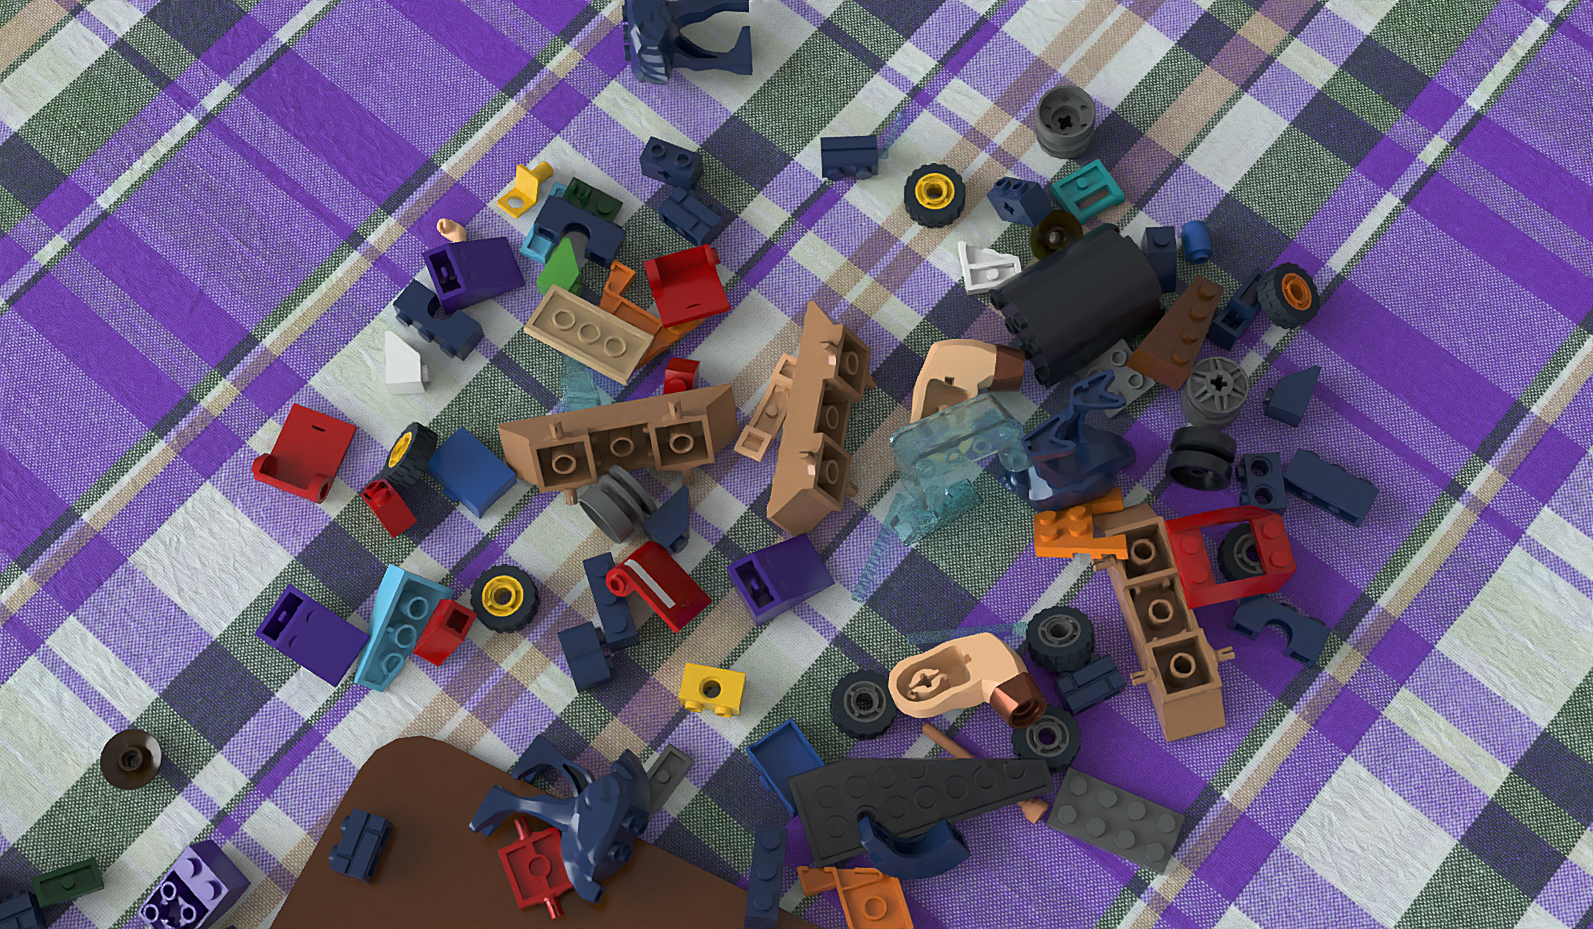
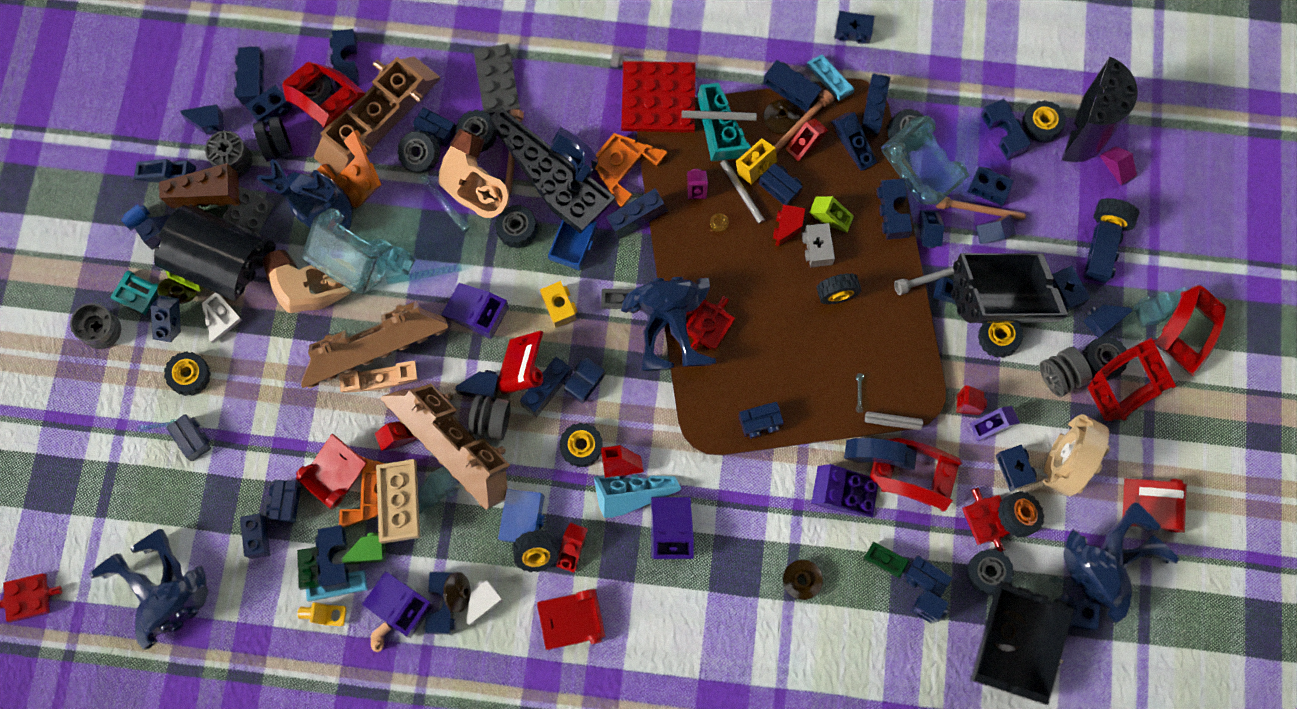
camera: 125 degrees left, 5 degrees up
(434, 341) = (457, 592): none -> dark brown dish
(1288, 296) = (144, 149): black wheel -> none

